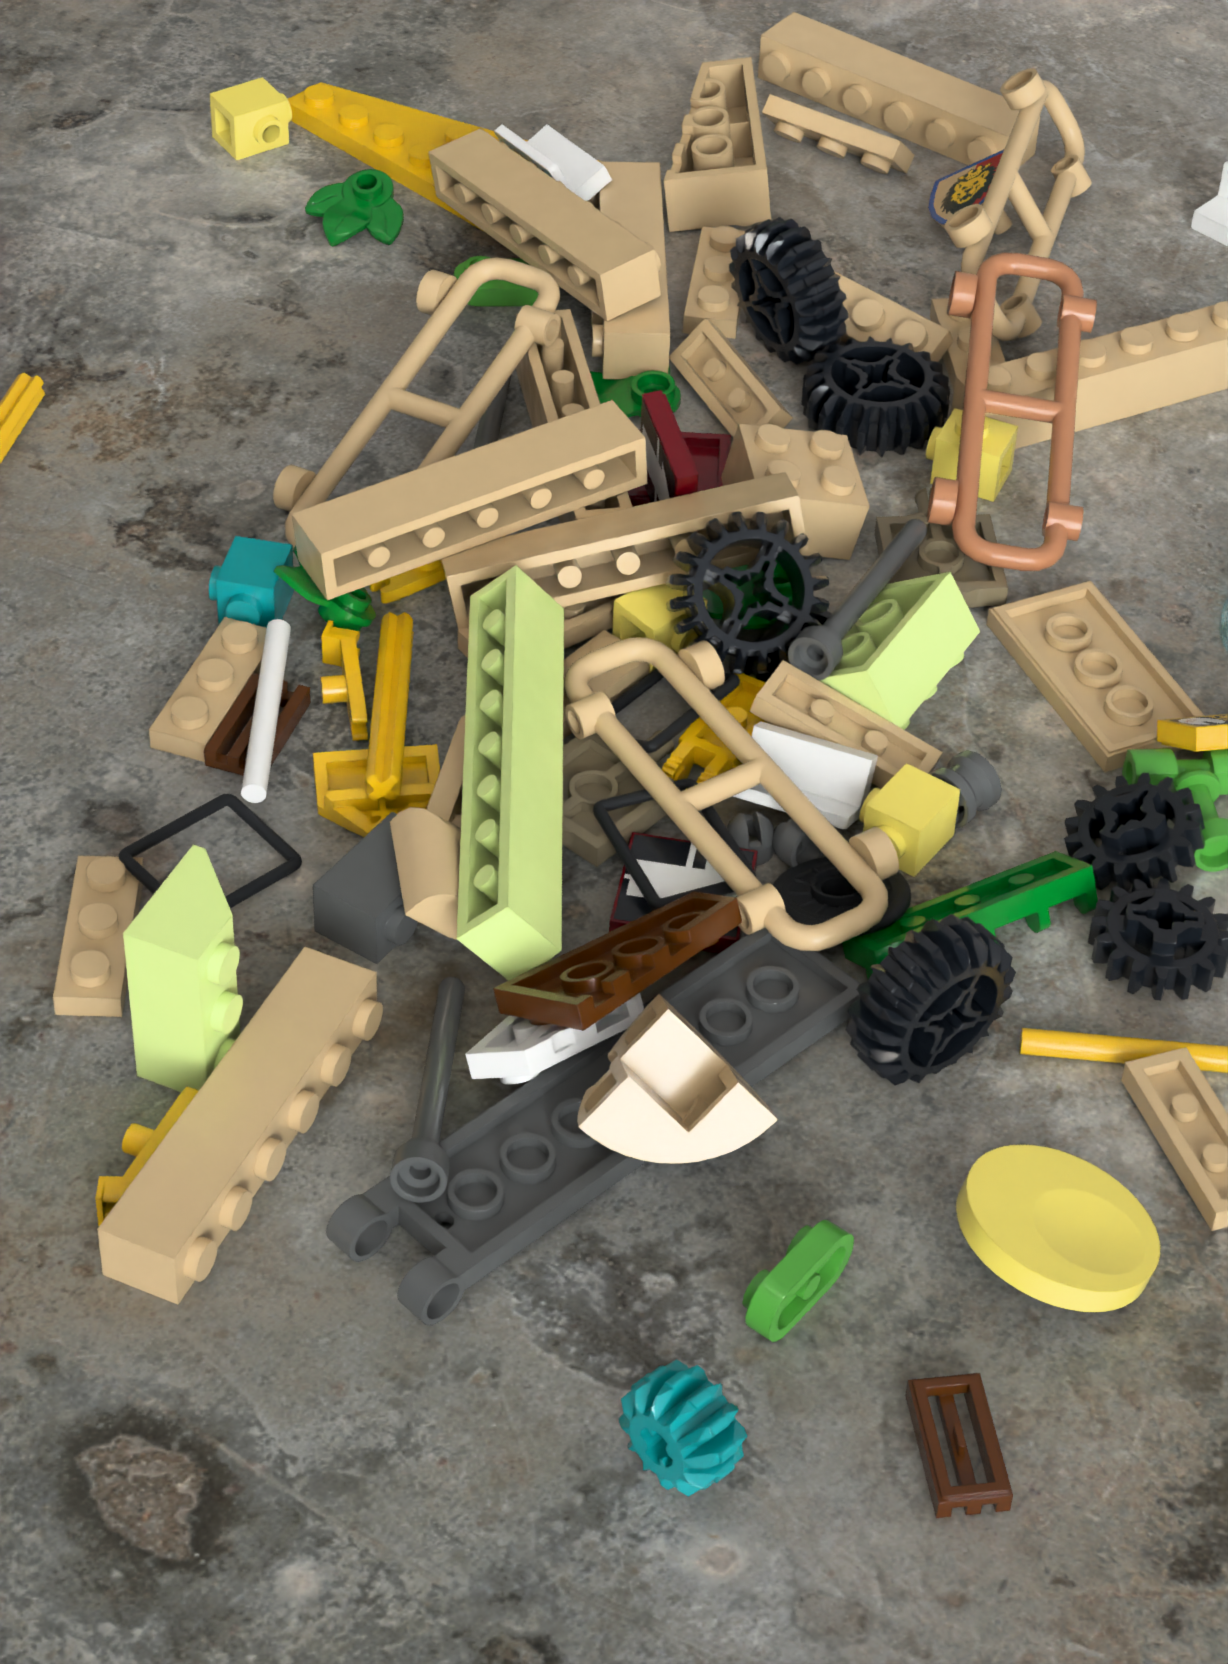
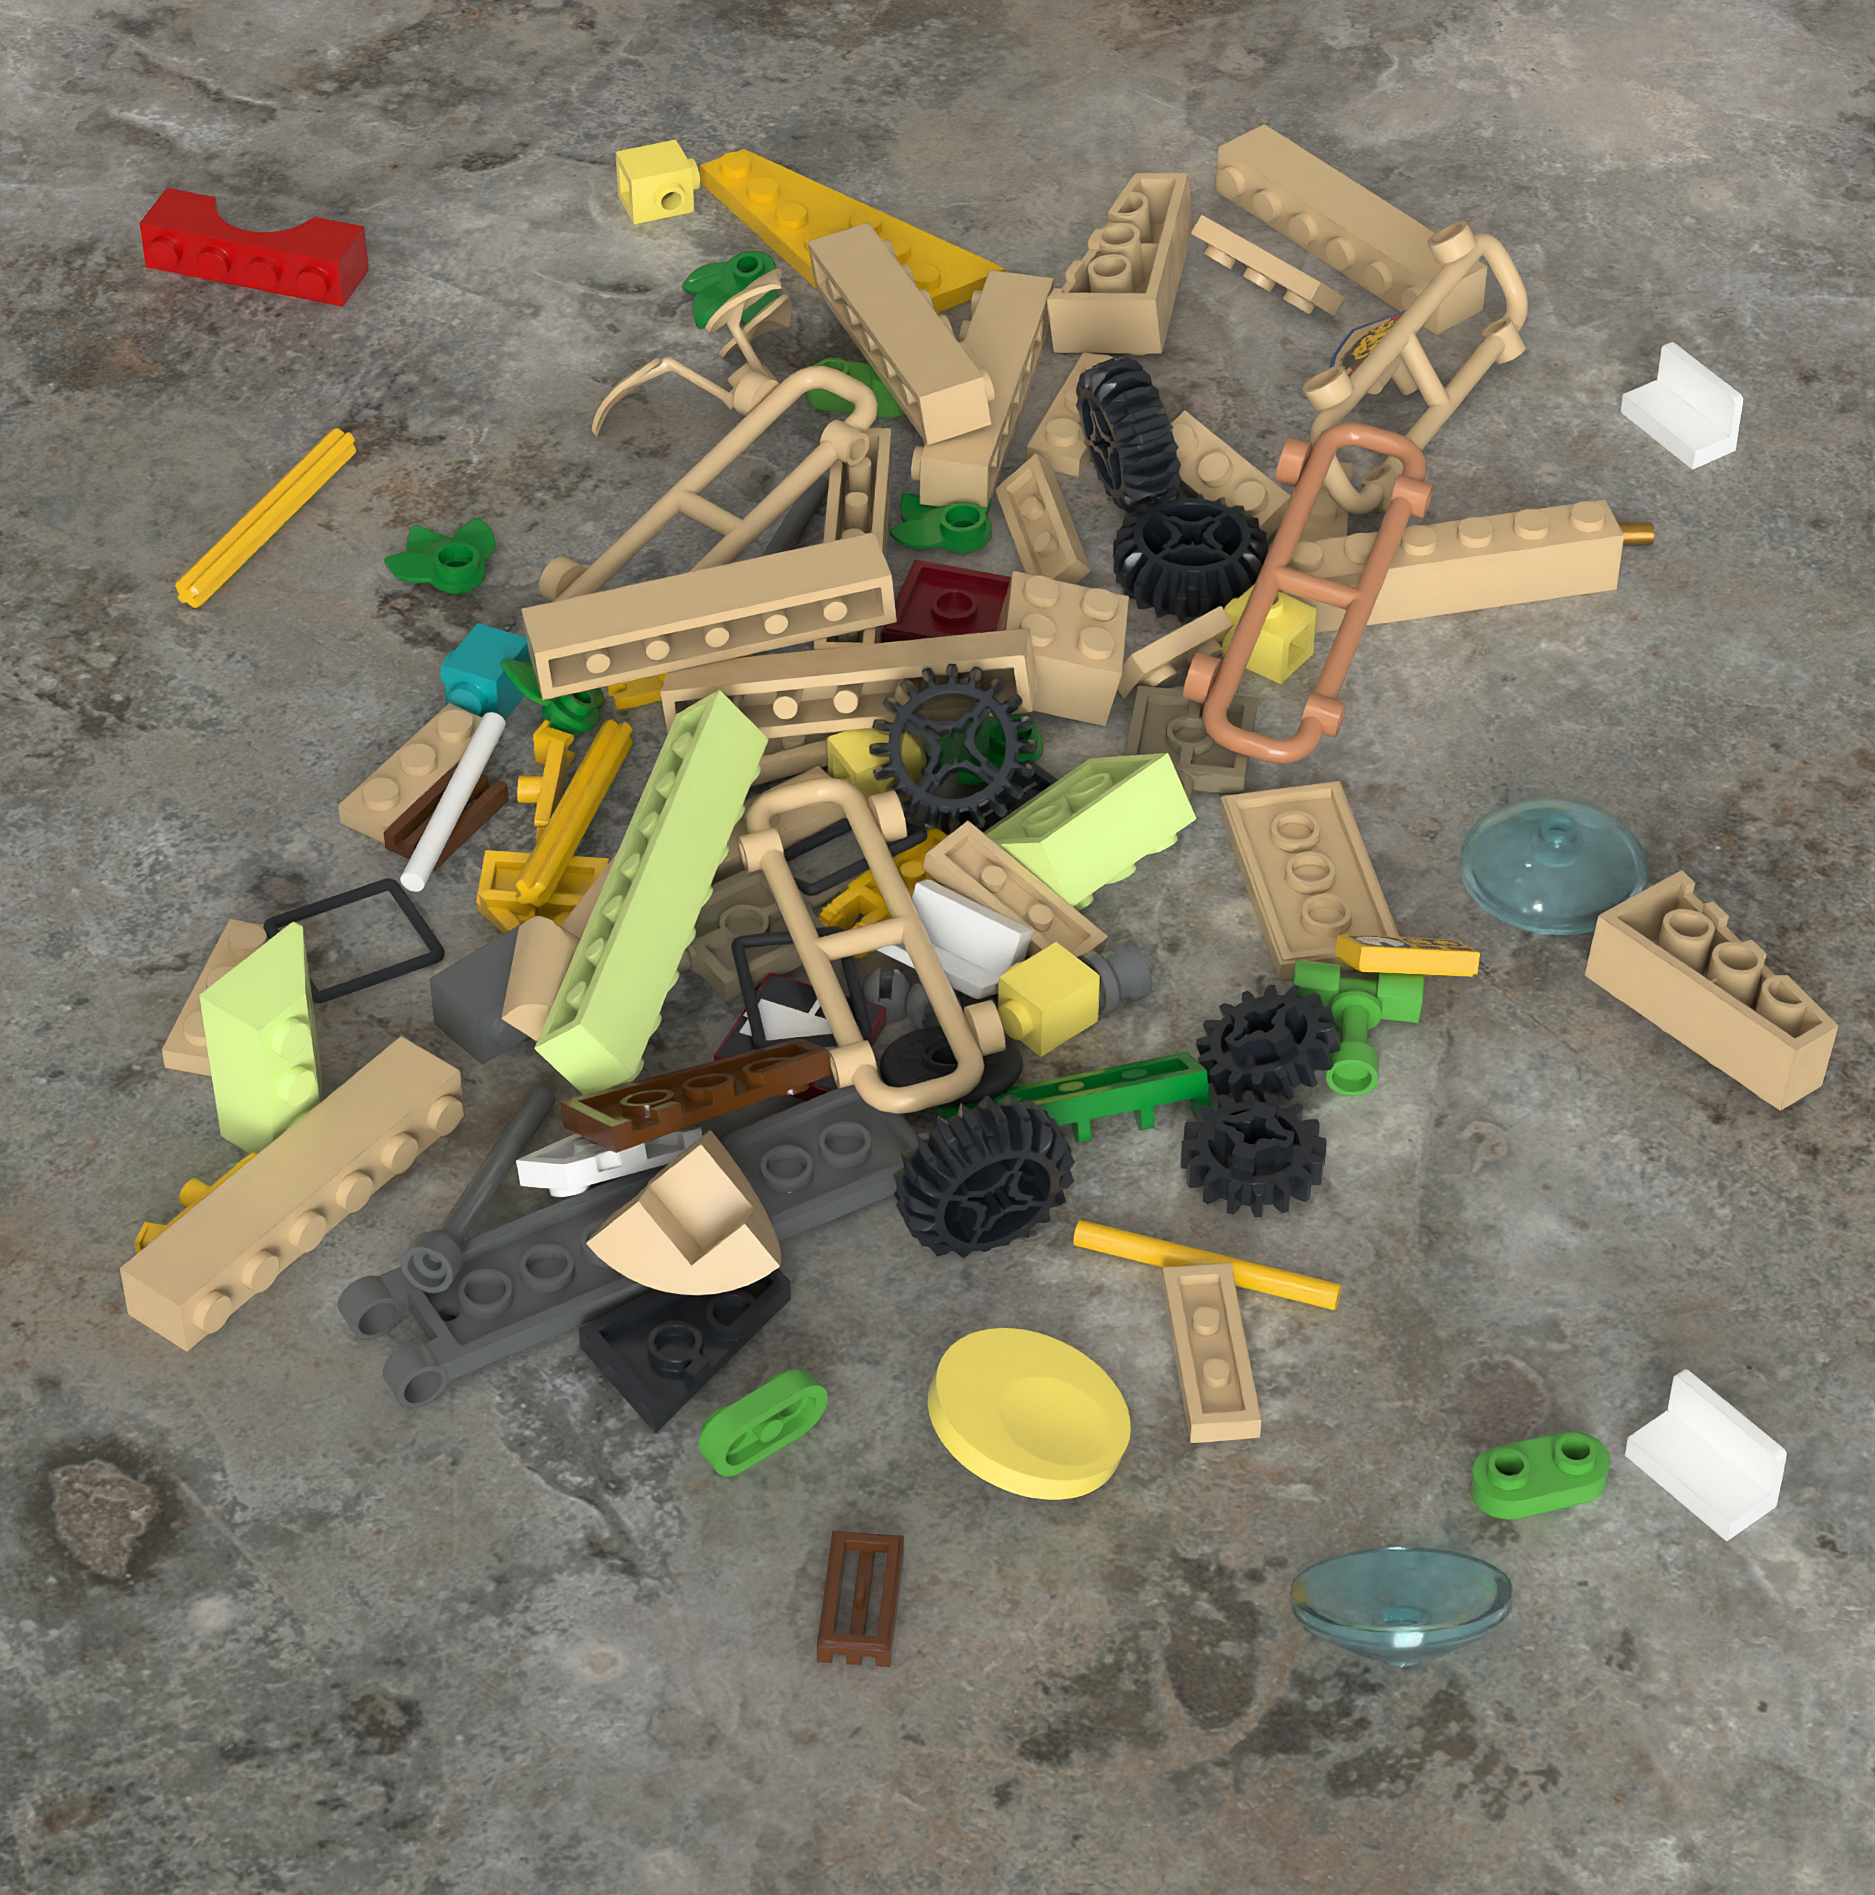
camera: 15 degrees right, 0 degrees up
(175, 485) = (446, 562): none -> green plate
(401, 226) = (772, 317): none -> tan plant
(559, 160) = (942, 270): white panel -> none
(667, 455) = (923, 584): tile -> none
(677, 1216) = (672, 1343): none -> black wing
(682, 1427) = (593, 1535): teal gear -> none
(819, 647) = (1007, 813): dark grey piece -> none
(908, 475) = (1159, 661): none -> tan plate

